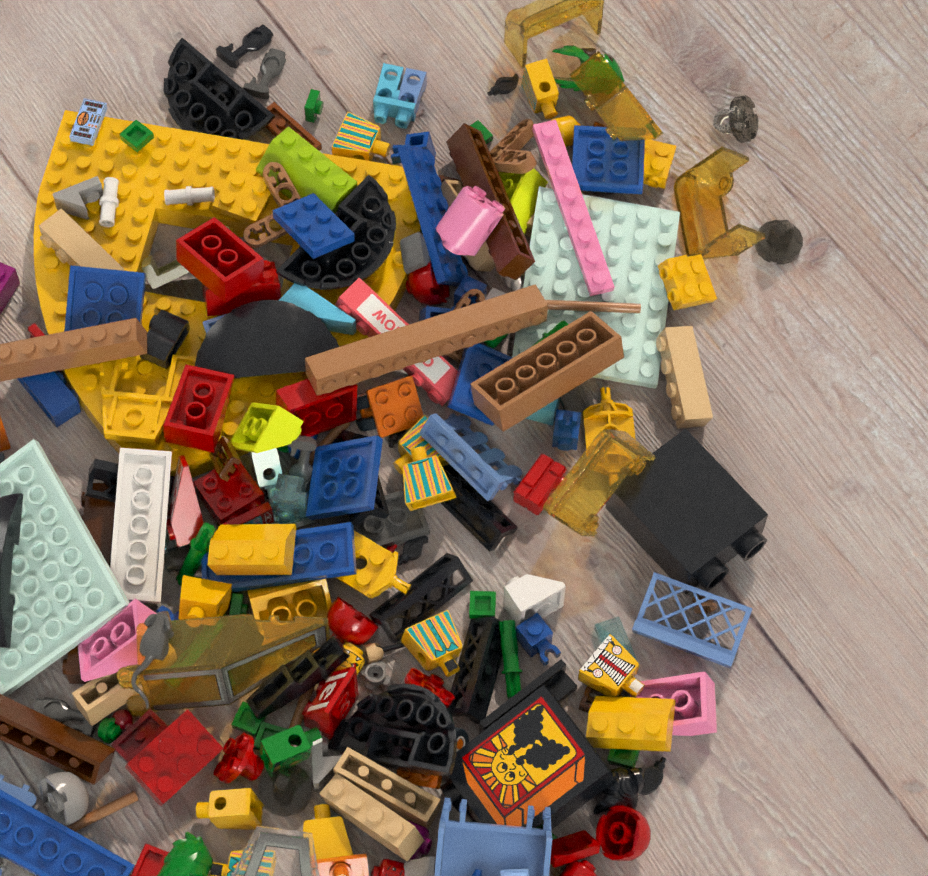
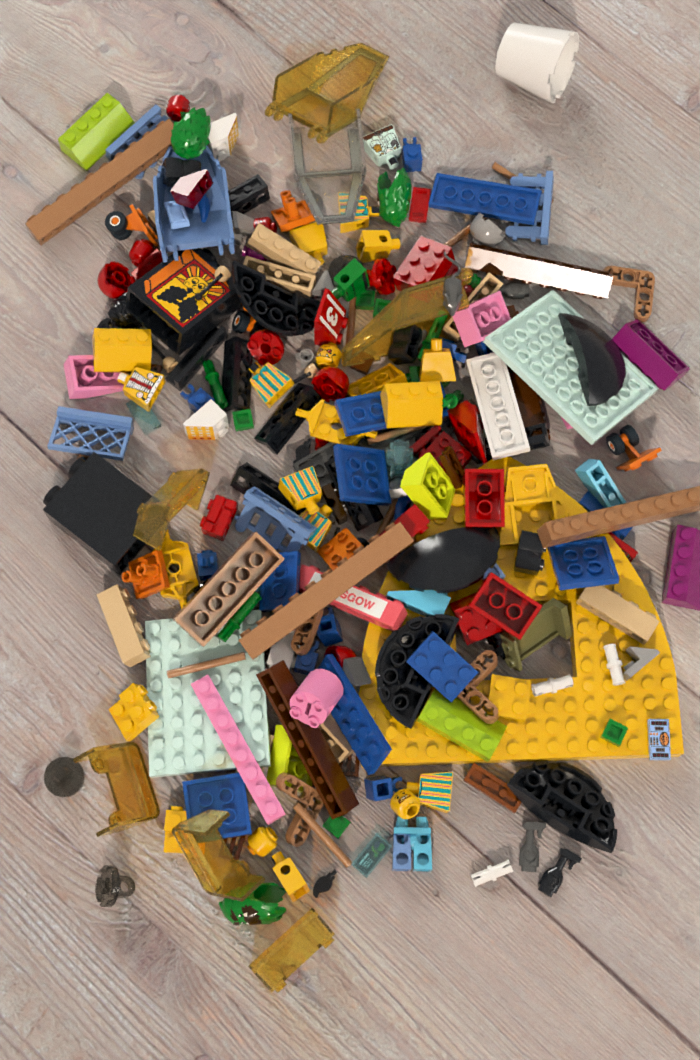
camera: 165 degrees right, 10 degrees up
(44, 405) = (599, 483): none -> medium azure slope
(290, 683) = (335, 349): black slope -> none
(313, 106) = (480, 817): green plate -> none
(318, 56) = (491, 873): none -> white pin
(389, 480) = (339, 510): none -> dark brown piece
(395, 126) = (405, 804): none -> yellow head
(444, 100) = (371, 855): none -> clear light blue tile
(471, 776) = (221, 274): none -> hinge
(495, 121) = (322, 834): none -> medium nougat bar
(570, 705) = (168, 363): none -> tan hinge
(646, 424) = (147, 574): none -> orange plate

